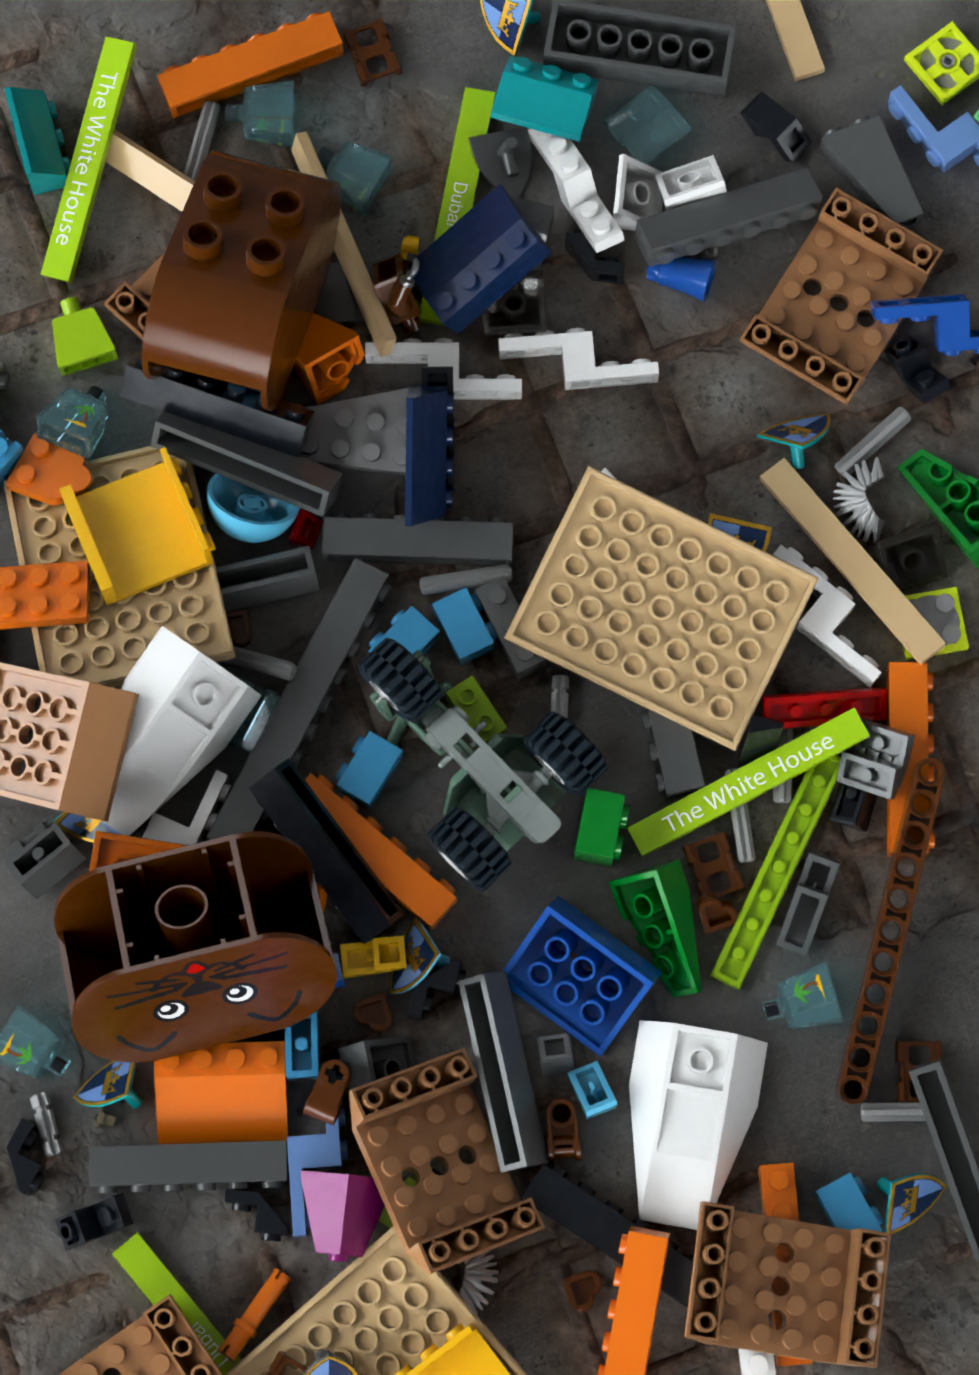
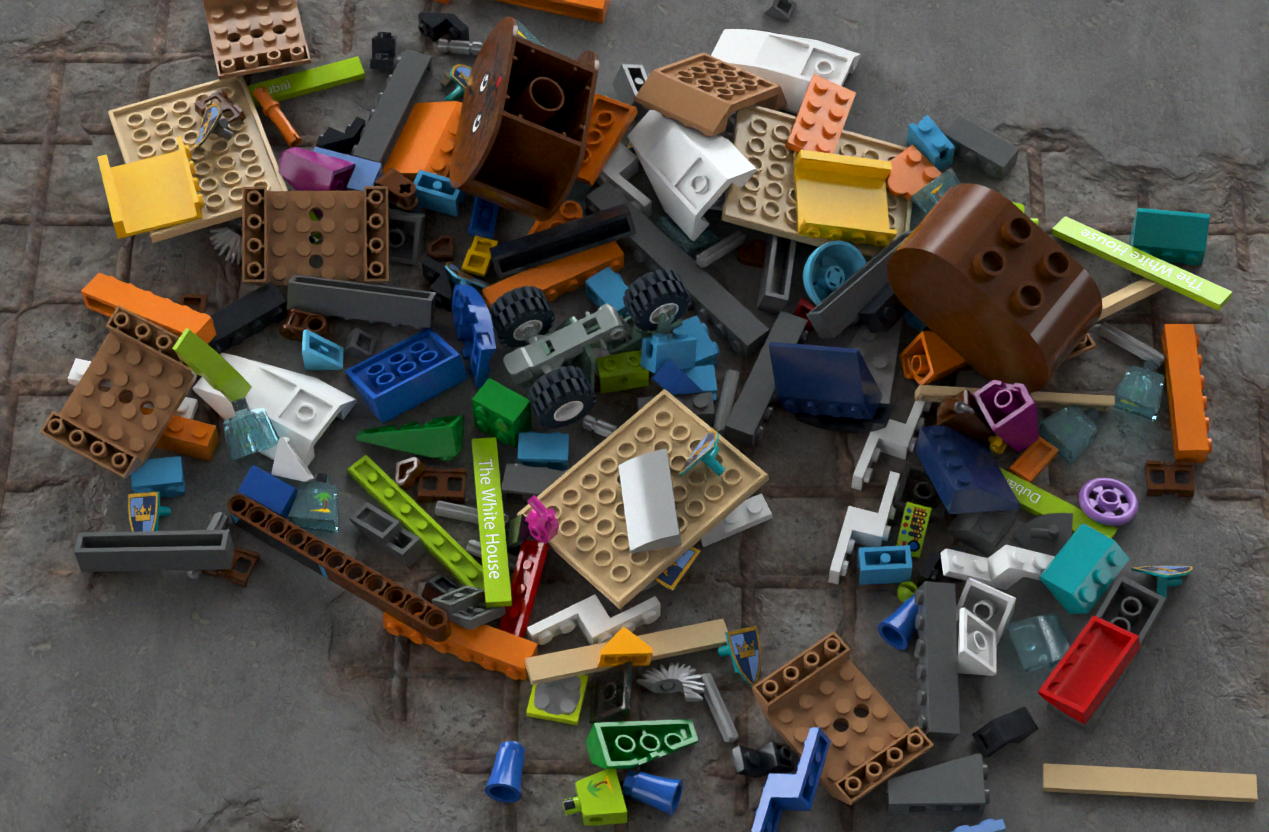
camera: 110 degrees right, 20 degrees down
(379, 236) = (1009, 412): none -> magenta slope
(407, 207) = (1034, 460): none -> orange tile
(446, 651) = (673, 346): none -> dark azure brick
(447, 126) = (1108, 501): none -> medium lavender plate
(486, 632) = (675, 380): none -> blue slope
(491, 910) = (473, 326): none -> blue slope
(565, 301) = (914, 527): none -> tile
(593, 546) = (707, 452): none -> shield
(624, 317) = (884, 564): none -> dark azure brick
(626, 763) = (544, 450): none -> dark azure brick
(631, 287) = (903, 590): none -> lime hinge
(676, 589) = (649, 502): none -> light grey slope
(682, 47) = (1090, 669): none -> red slope
(718, 1181) = (211, 366): none -> lime slope
(753, 1117) = (248, 431): none -> clear light blue torso
(756, 700) = (542, 522): none -> dark pink piece
(775, 1048) = (289, 462): none -> white slope
(815, 1062) = (268, 491): none -> blue brick
(865, 557) = (624, 648): none -> light orange slope

